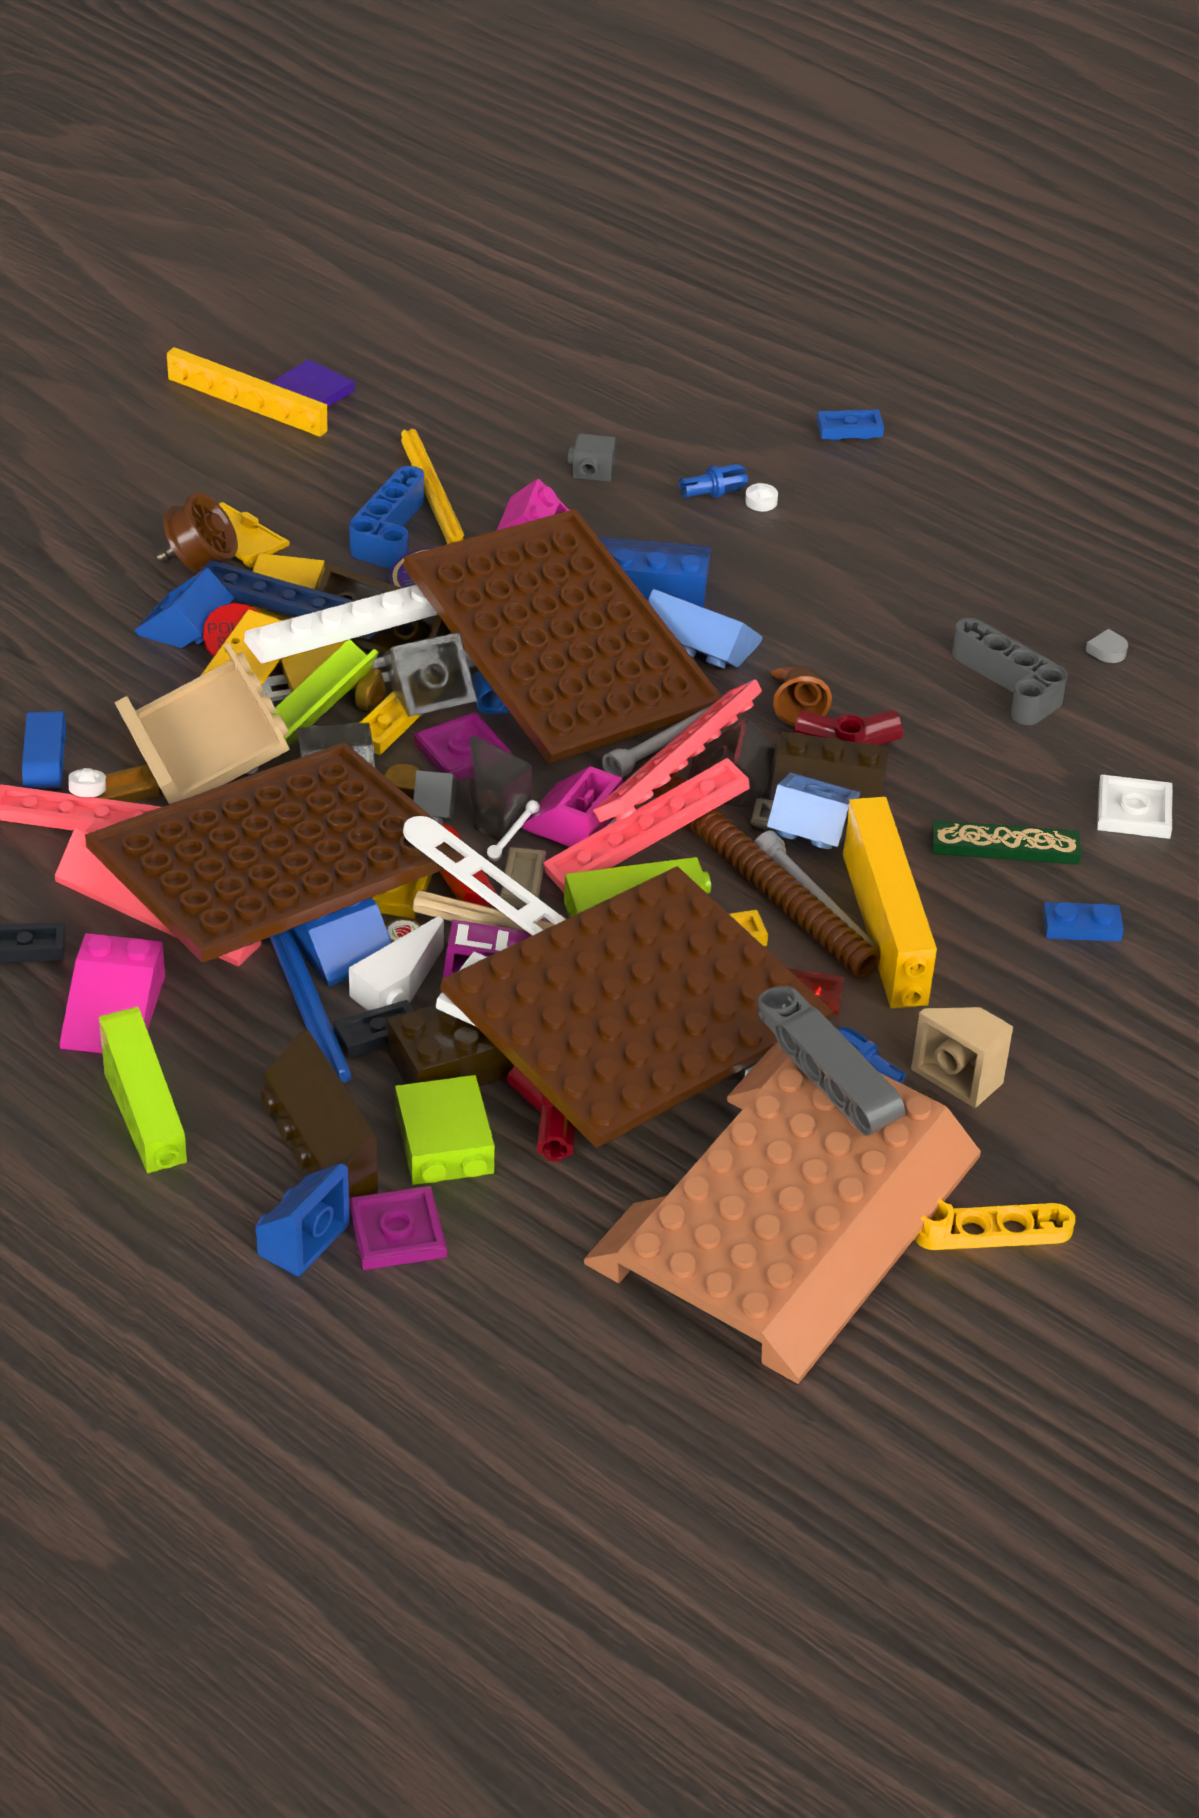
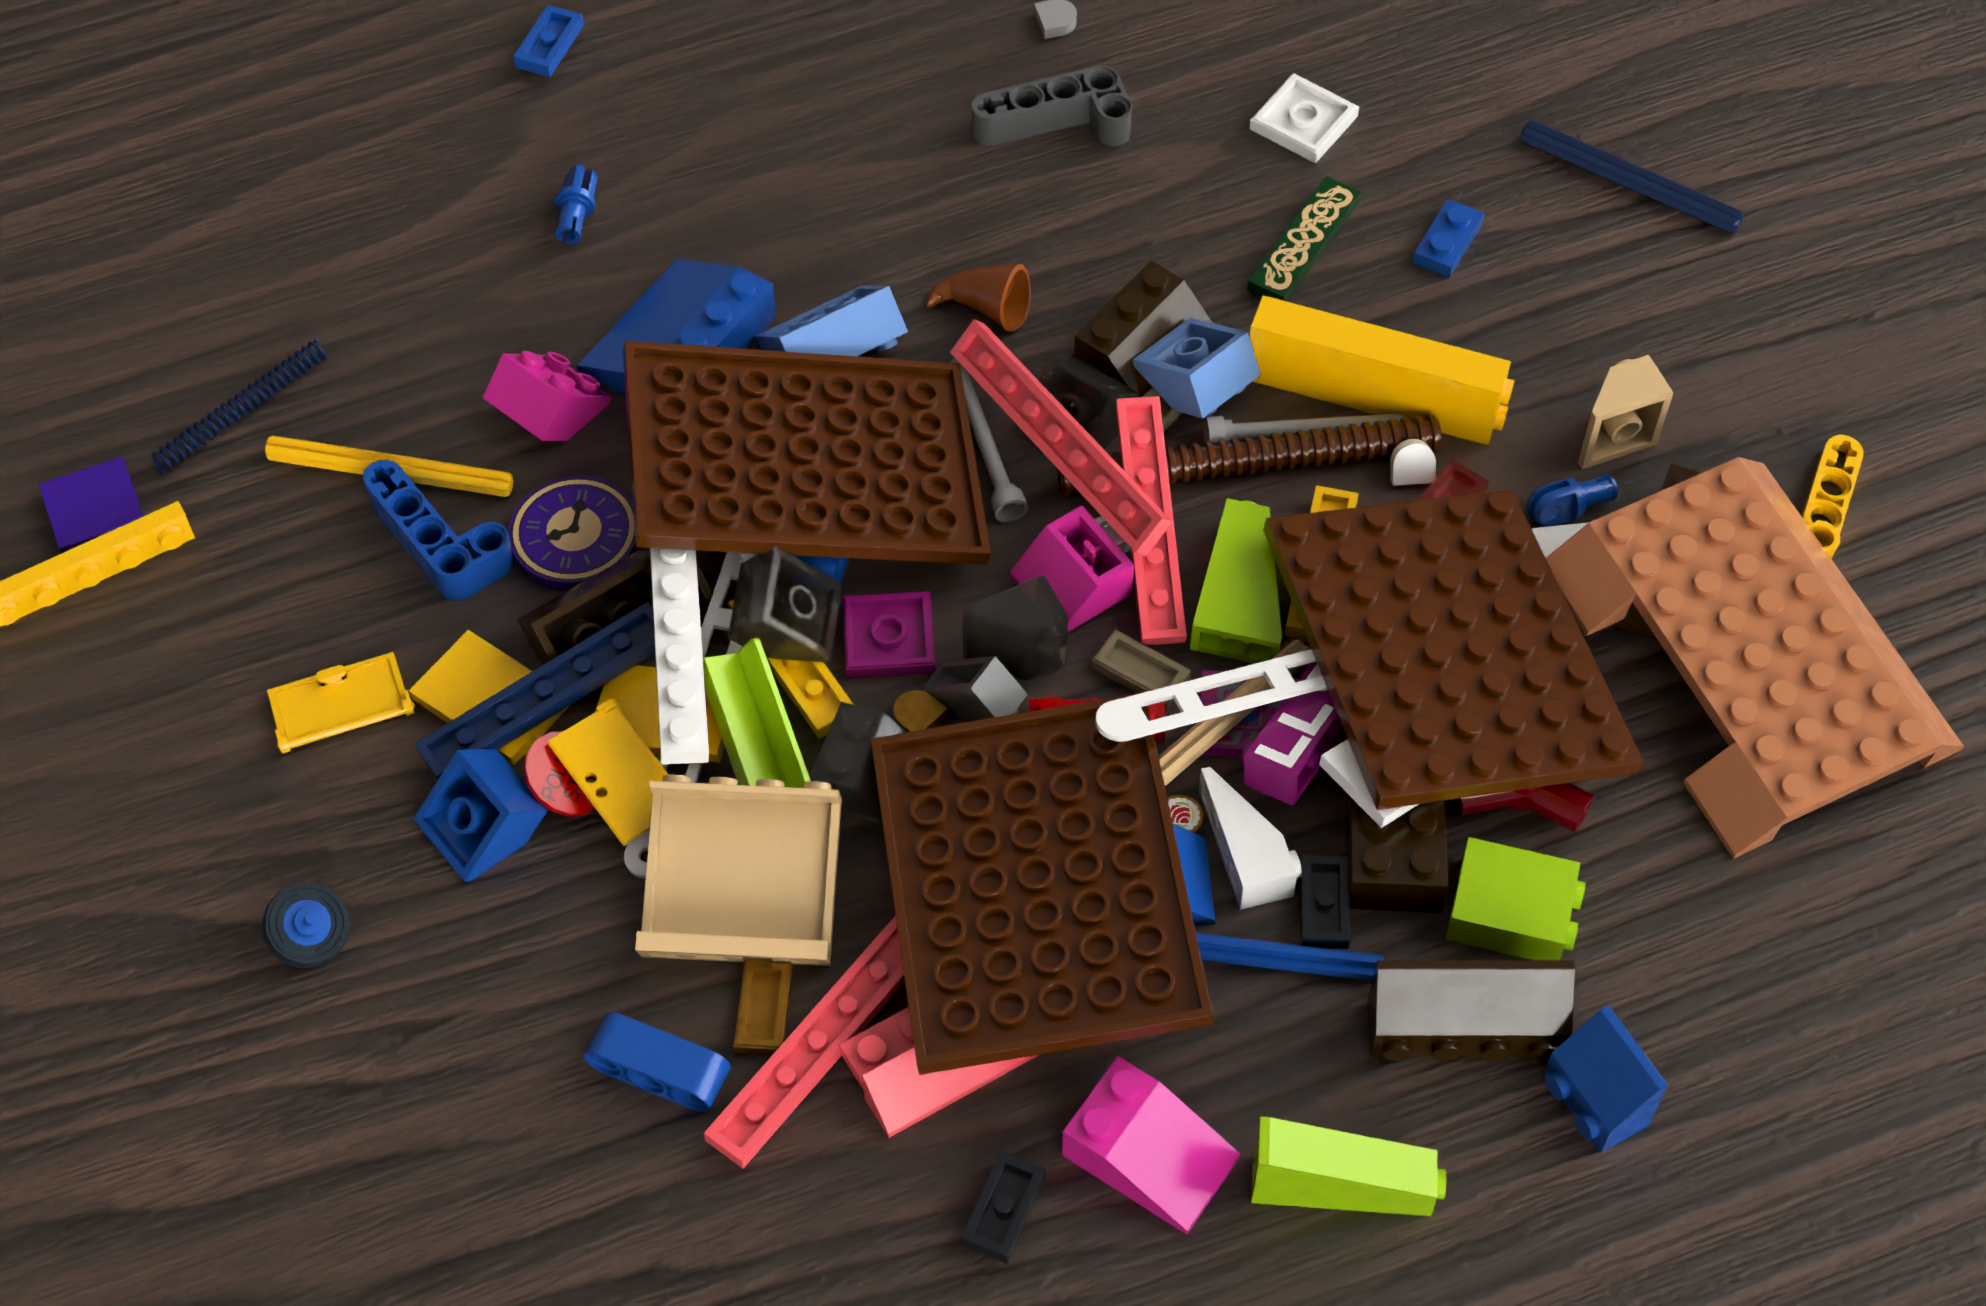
camera: 60 degrees left, 15 degrees up
(53, 571) = (305, 925): none -> black wheel
(87, 782) = (762, 1035): white tile -> none
(198, 533) = (359, 737): reddish brown wheel -> none
(397, 1228) = (1634, 990): magenta tile -> none
(435, 407) = (295, 371): none -> dark blue piece
(494, 852) = (1084, 677): white hinge -> none
(593, 457) = (452, 289): dark grey brick -> none
(761, 497) = (619, 176): white tile -> none
(825, 957) = (1412, 463): none -> white tile
(830, 1060) = (1658, 517): dark grey piece -> none
(872, 729) = (1082, 291): dark red piece -> none

